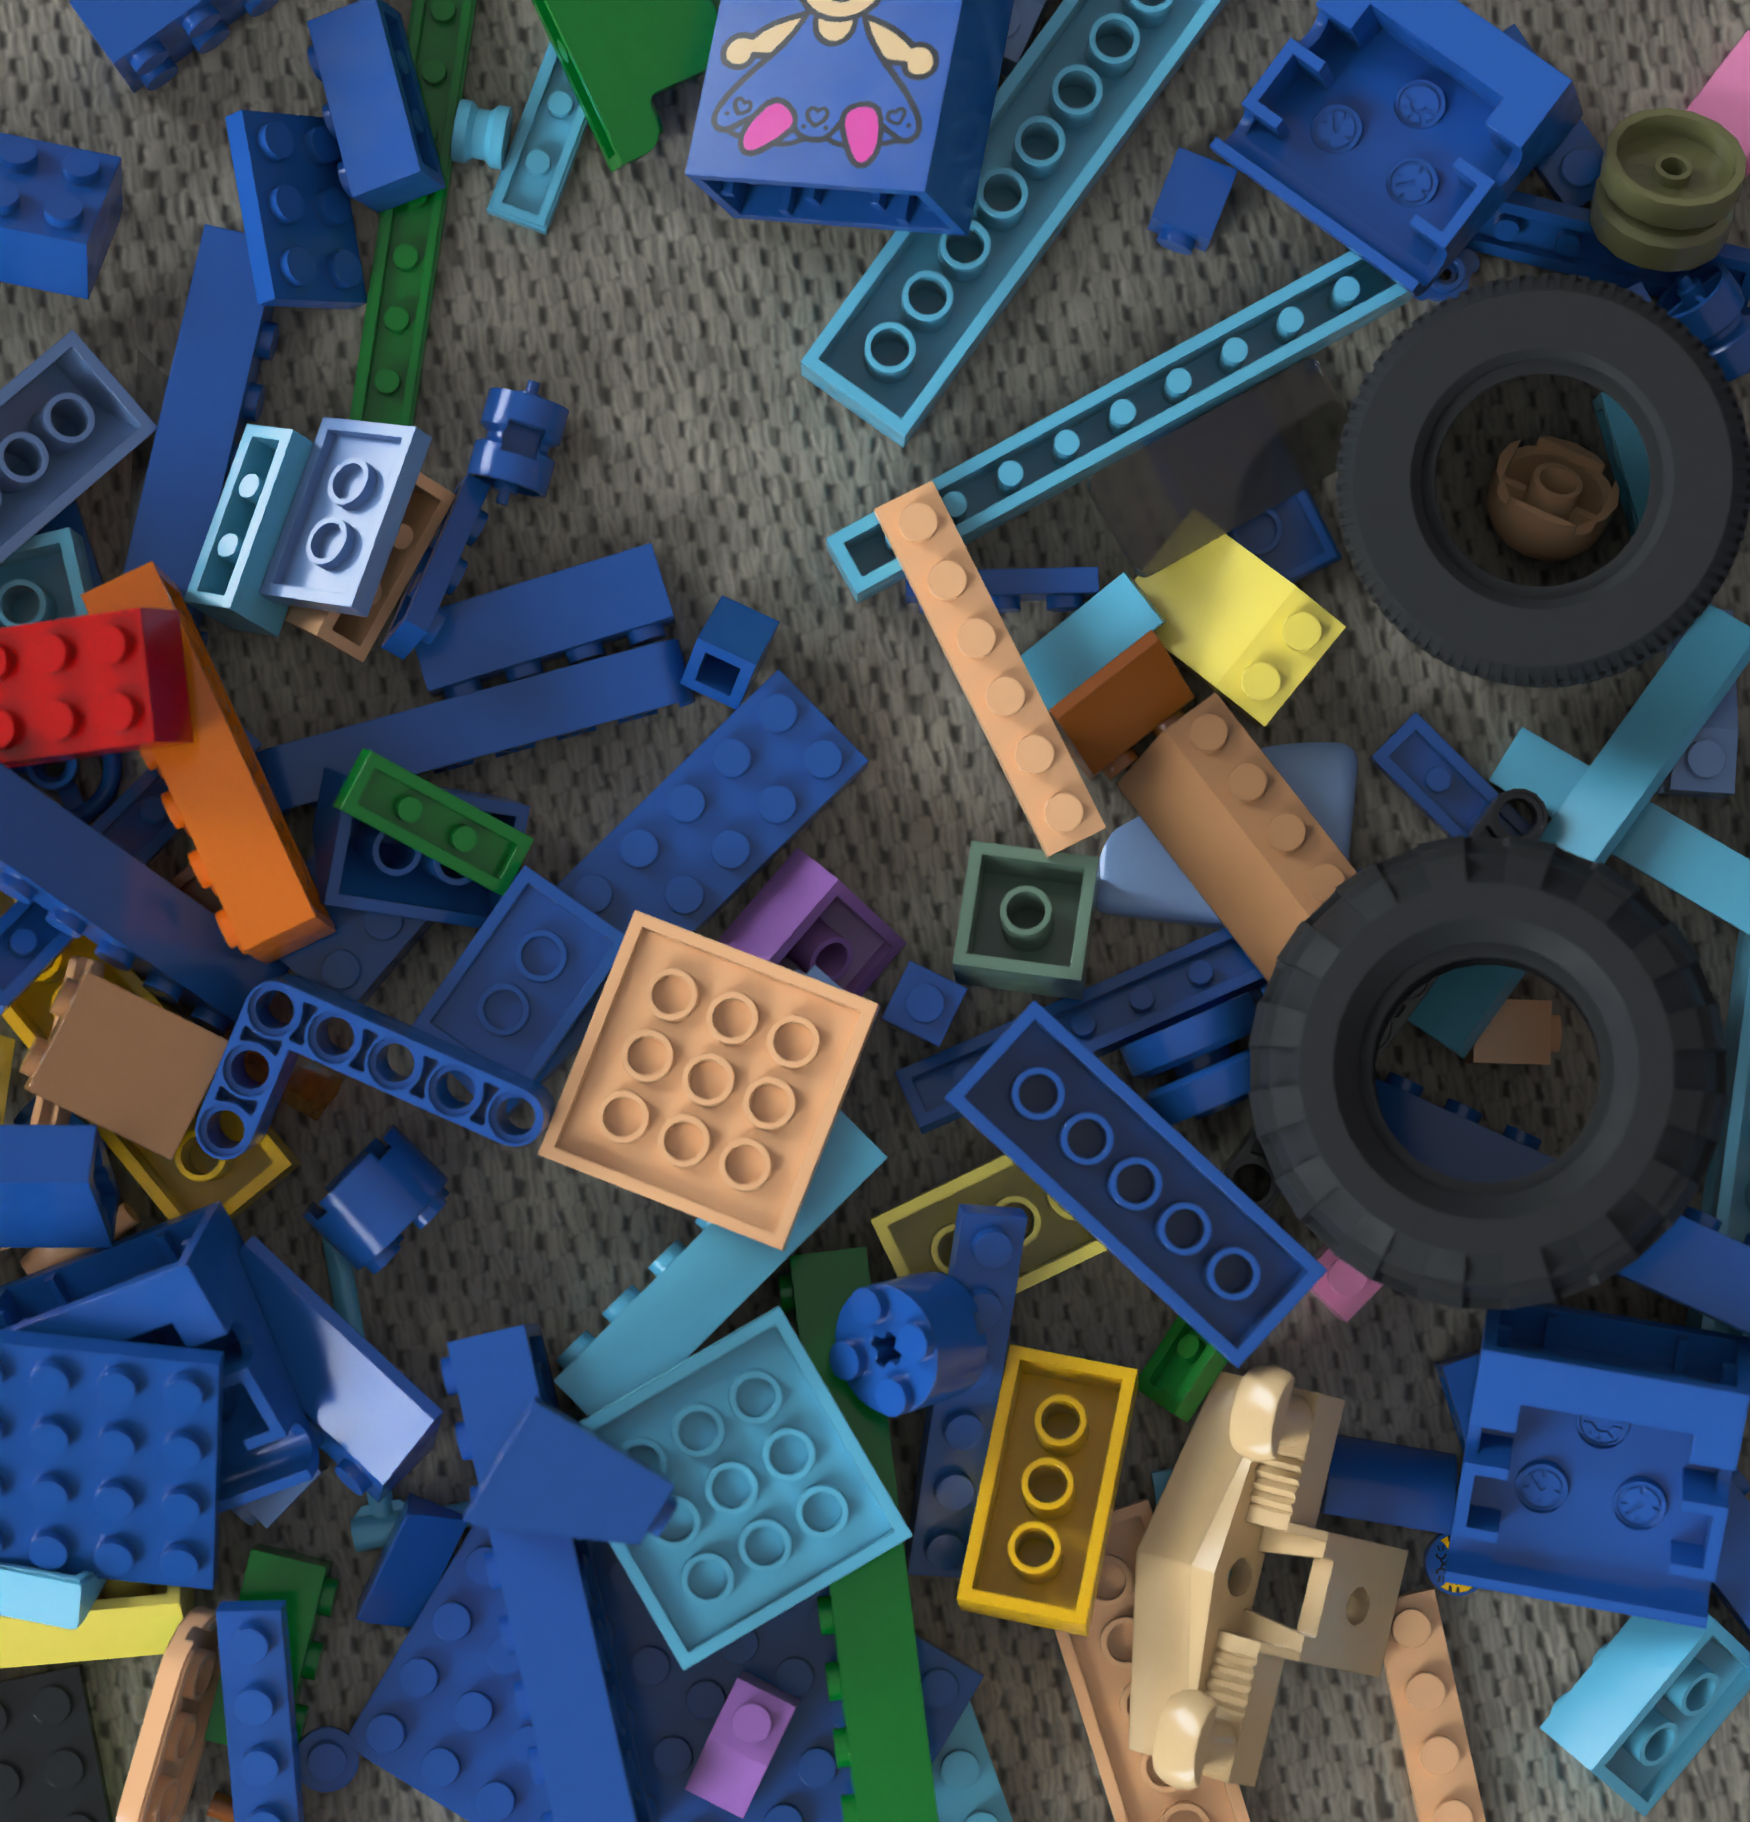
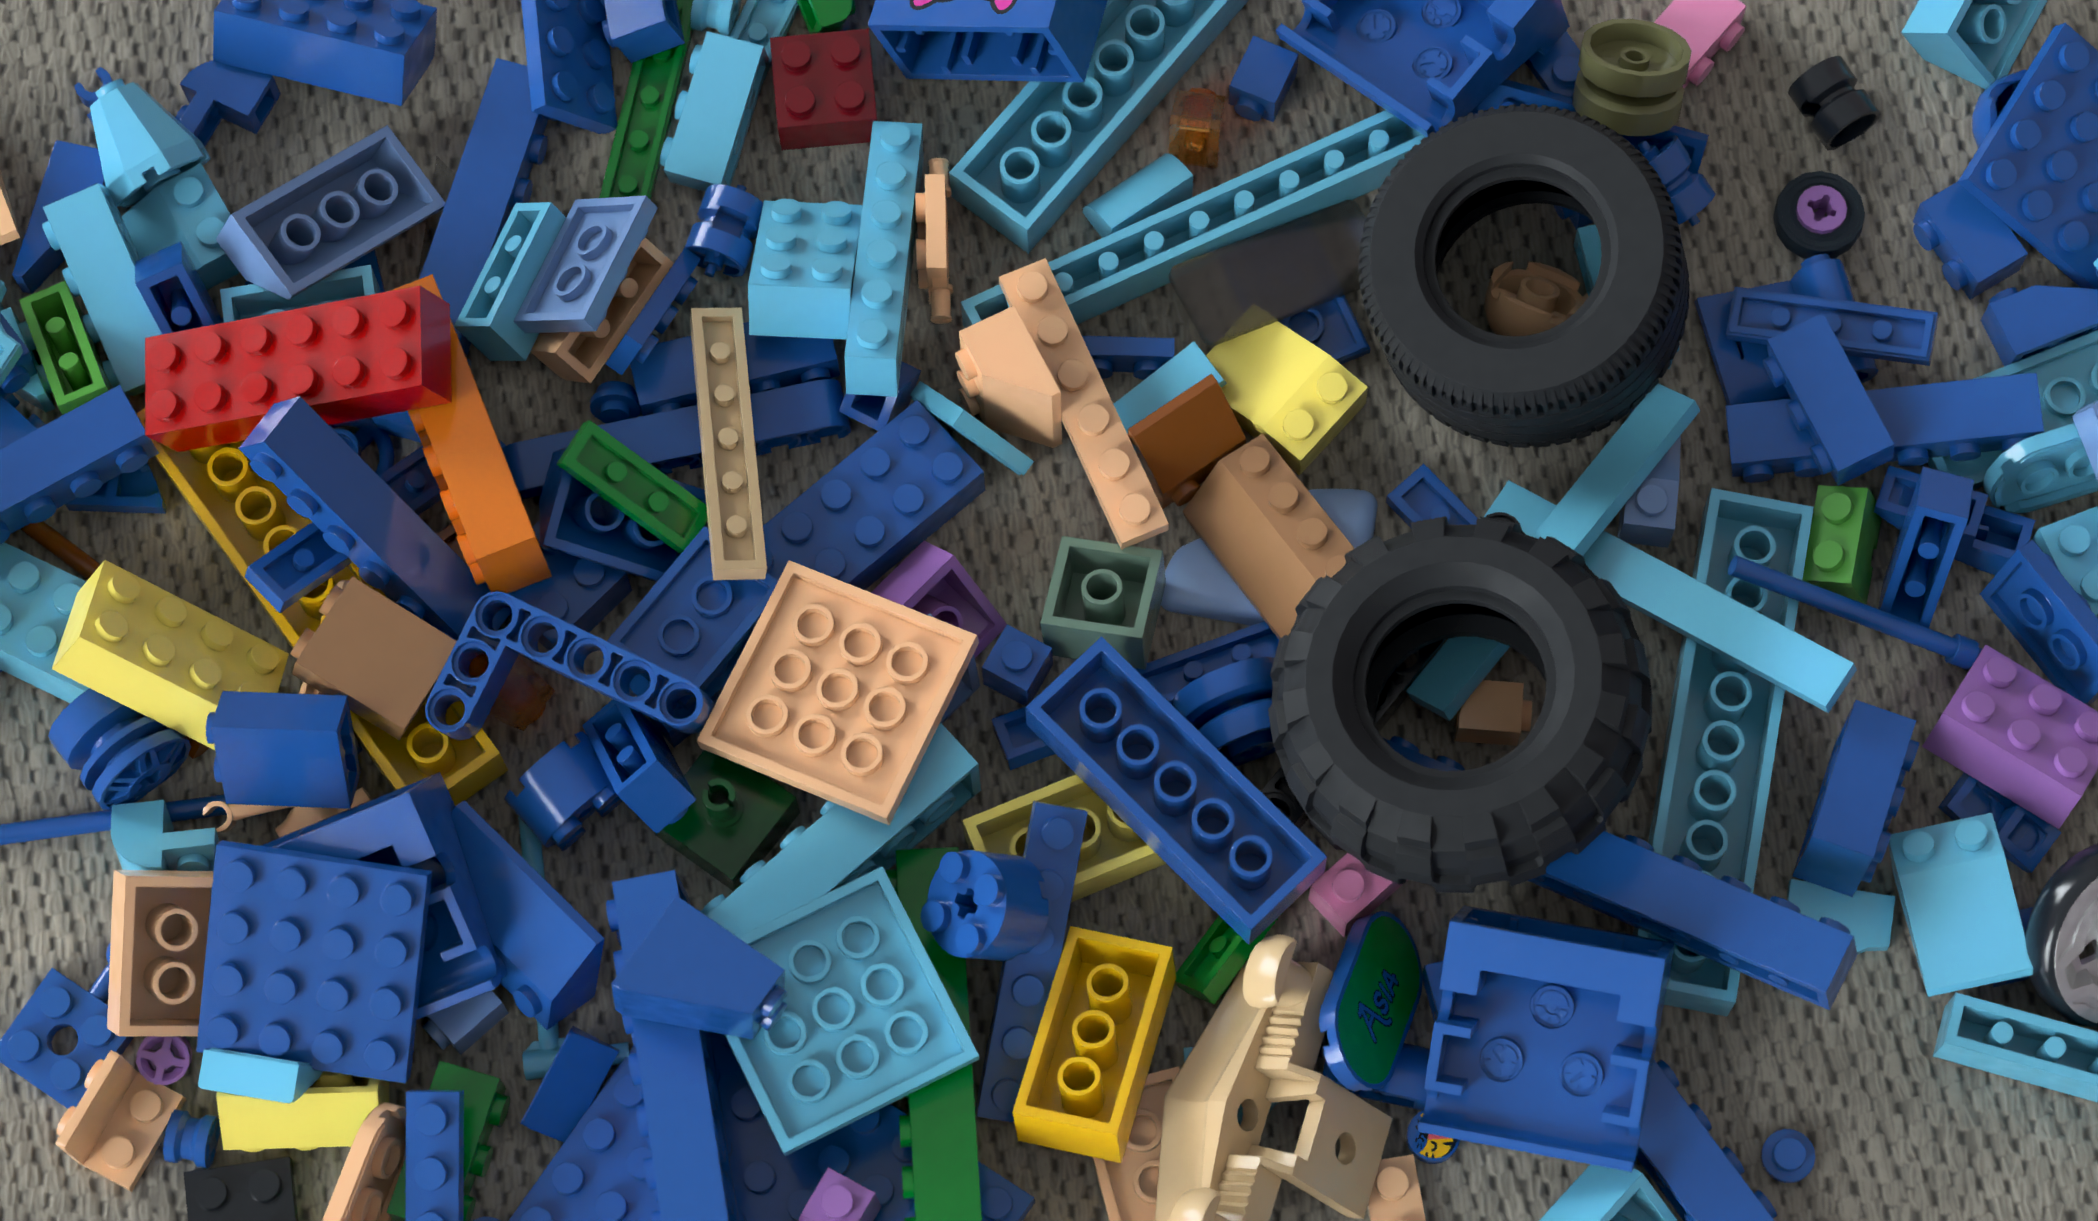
camera: 15 degrees right, 15 degrees down
(395, 681) = (614, 402): none -> blue plate
(467, 1183) = (639, 765): none -> blue brick
(491, 283) = (714, 112): none -> medium azure brick
(545, 753) = (727, 444): none -> tan plate
(570, 1226) = (733, 819): none -> dark green brick
(626, 503) = (803, 269): none -> medium azure brick
(630, 242) = (823, 88): none -> dark red brick
(725, 484) = (884, 260): none -> medium azure brick
(783, 426) = (932, 240): none -> light nougat plate
(845, 699) = (971, 429): none -> medium azure tile
(894, 642) = (1009, 380): none -> light nougat slope
(1041, 370) = (1141, 195): none -> medium azure brick
(1112, 270) = (1197, 127): none -> clear orange slope
(1381, 1422) = (1371, 1002): none -> green tile

